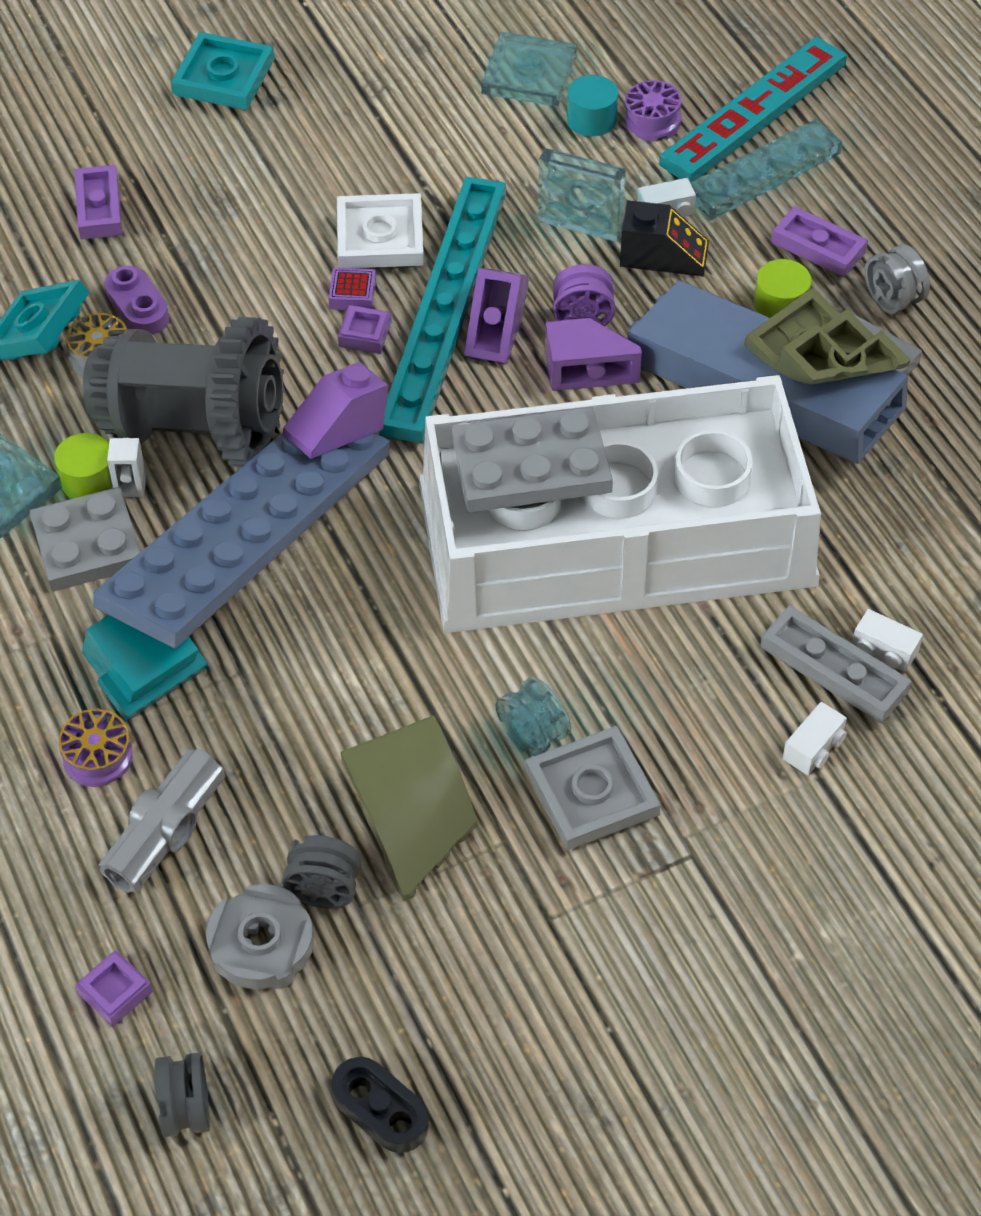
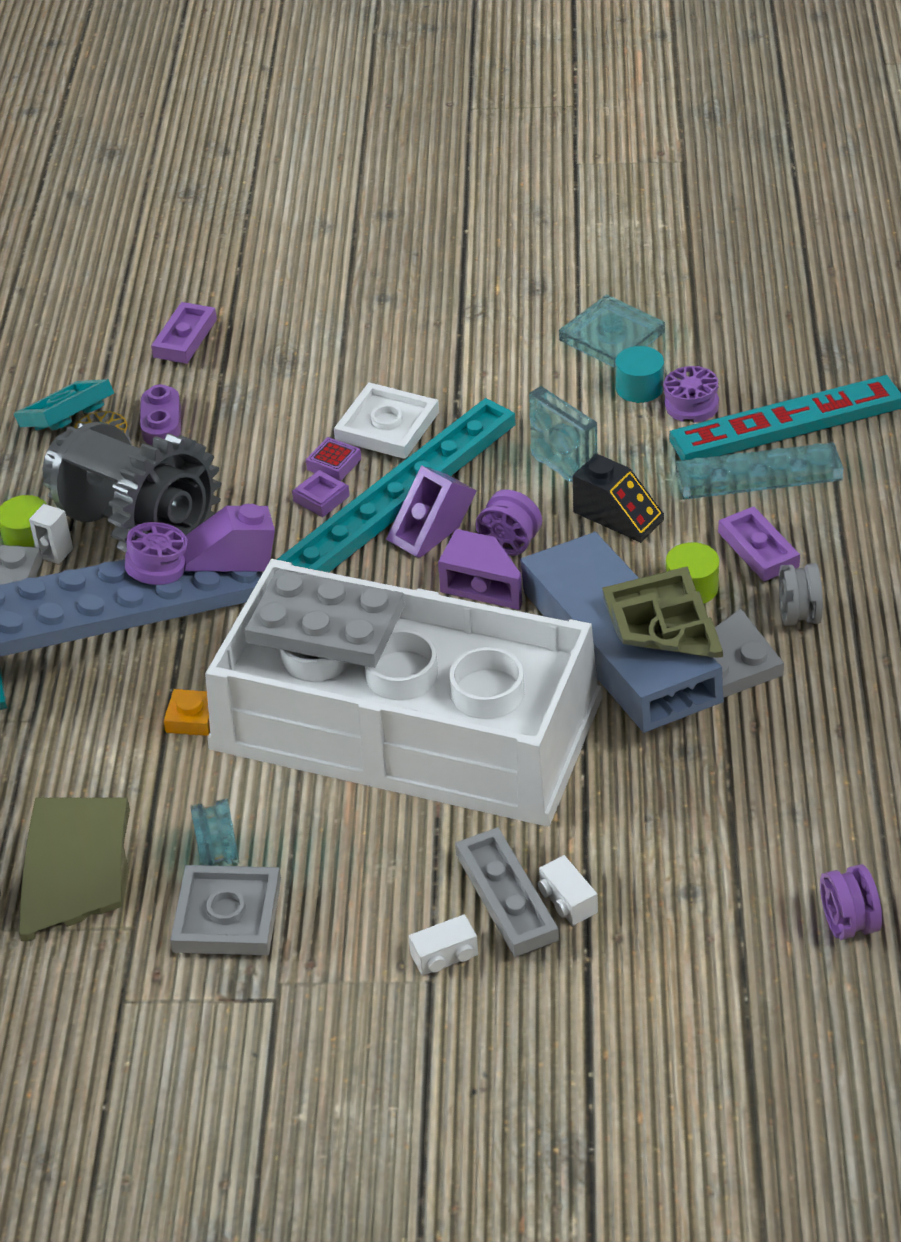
camera: 30 degrees right, 10 degrees down
(223, 70) = (355, 262): teal plate -> none
(281, 452) = (155, 556): none -> medium lavender wheel
(403, 602) = (187, 713): none -> light orange plate
(675, 193) = (651, 469): white piece -> none

